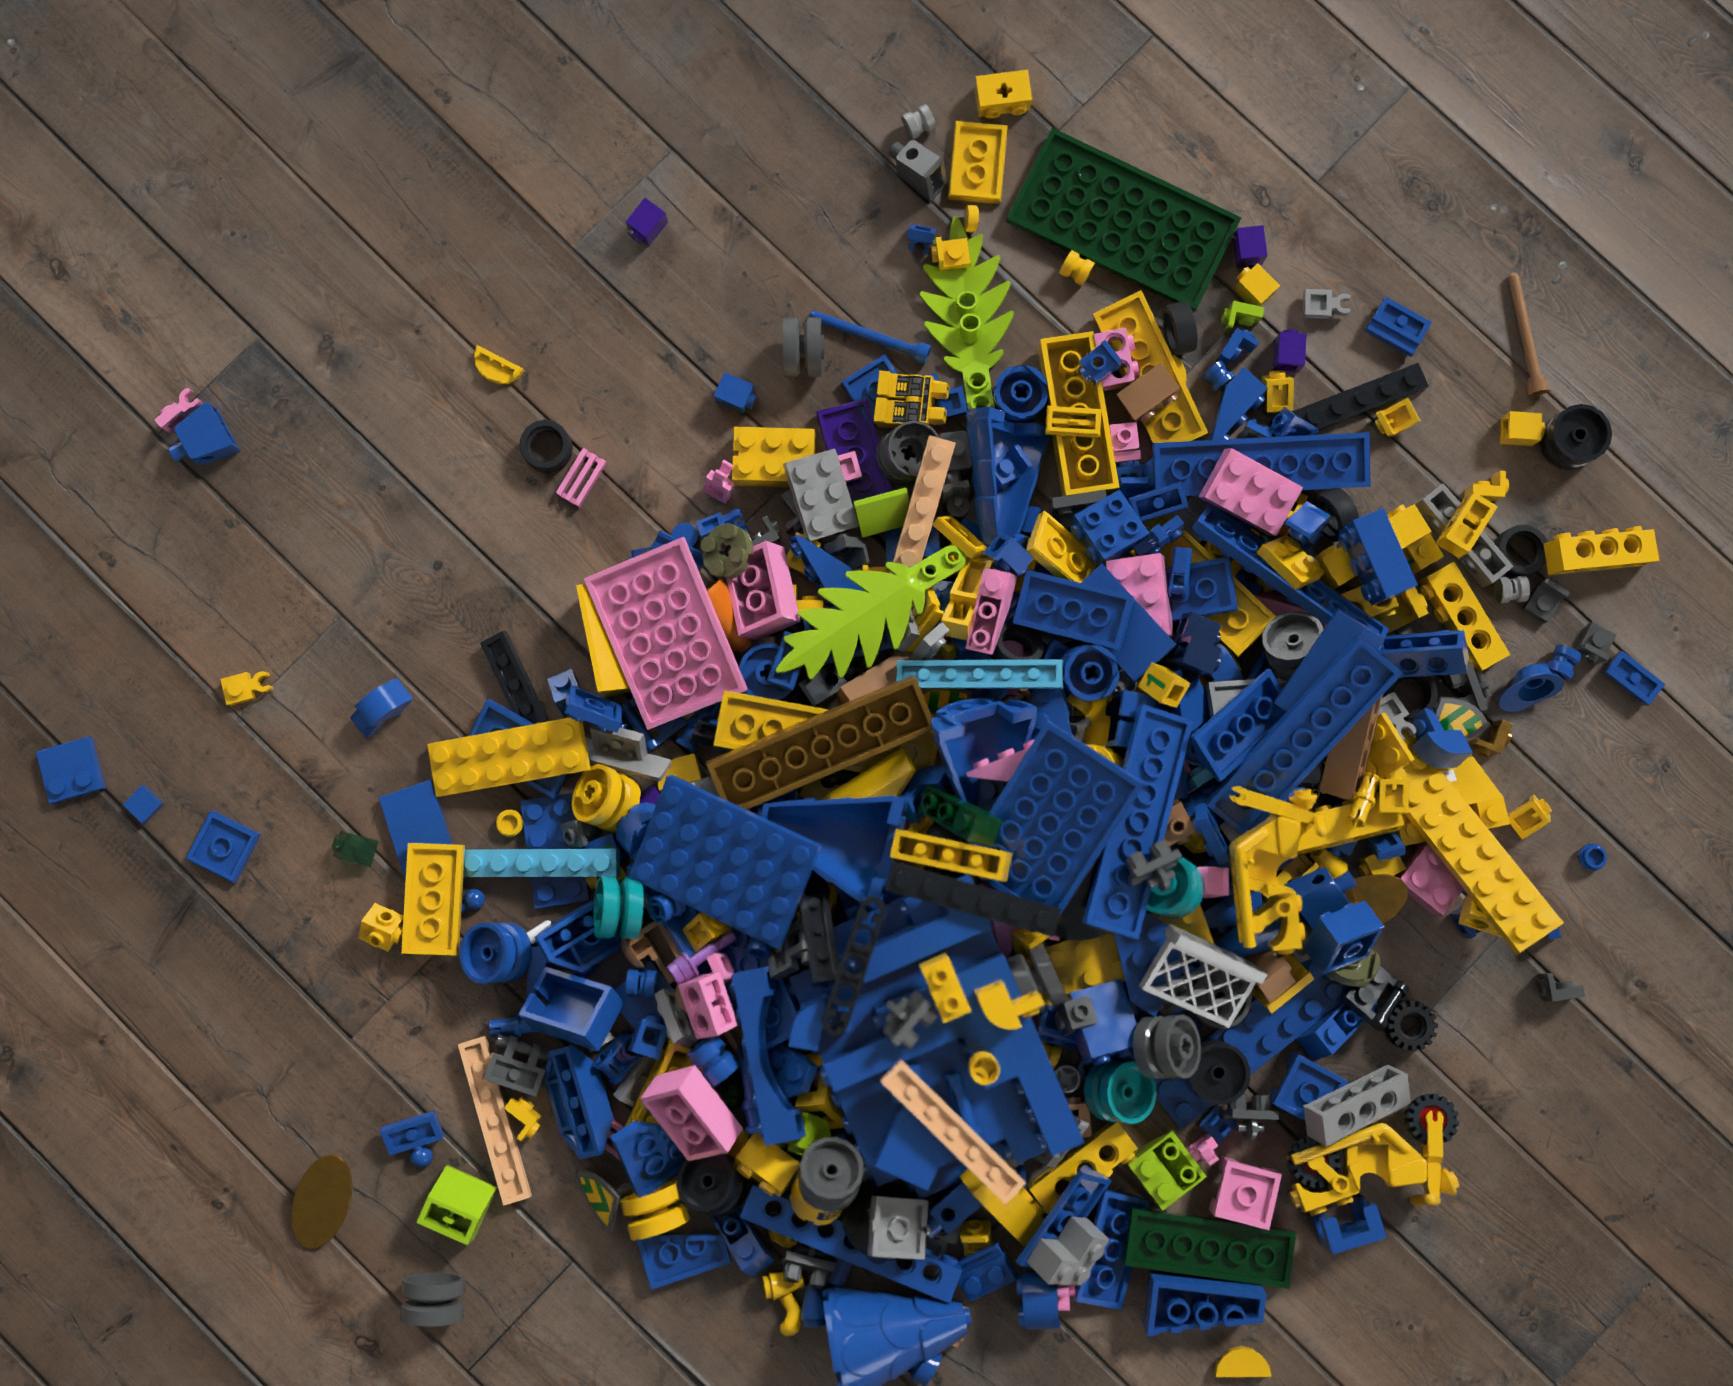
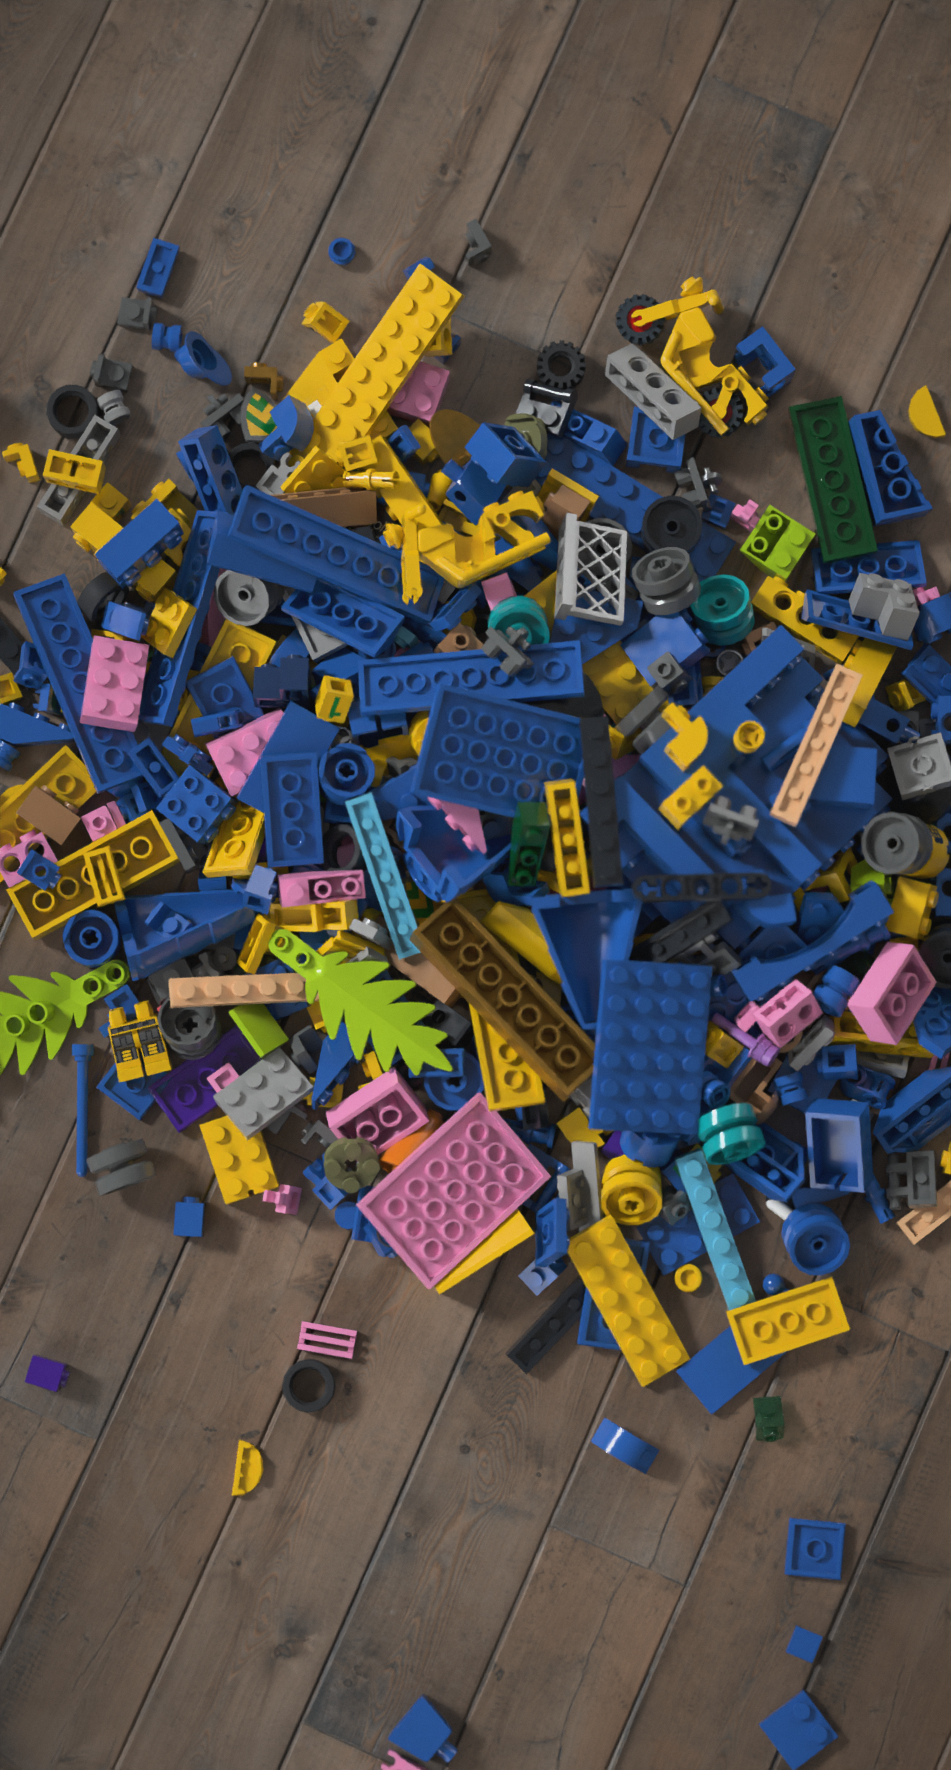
camera: 110 degrees left, 0 degrees up
(241, 687) = (656, 1593): yellow plate -> none
(381, 927) = (833, 1359): yellow brick -> none
(1246, 1193) = (771, 463): bright pink panel -> none
(1465, 602) = (178, 408): yellow brick -> none
(1638, 551) = (31, 302): yellow brick -> none

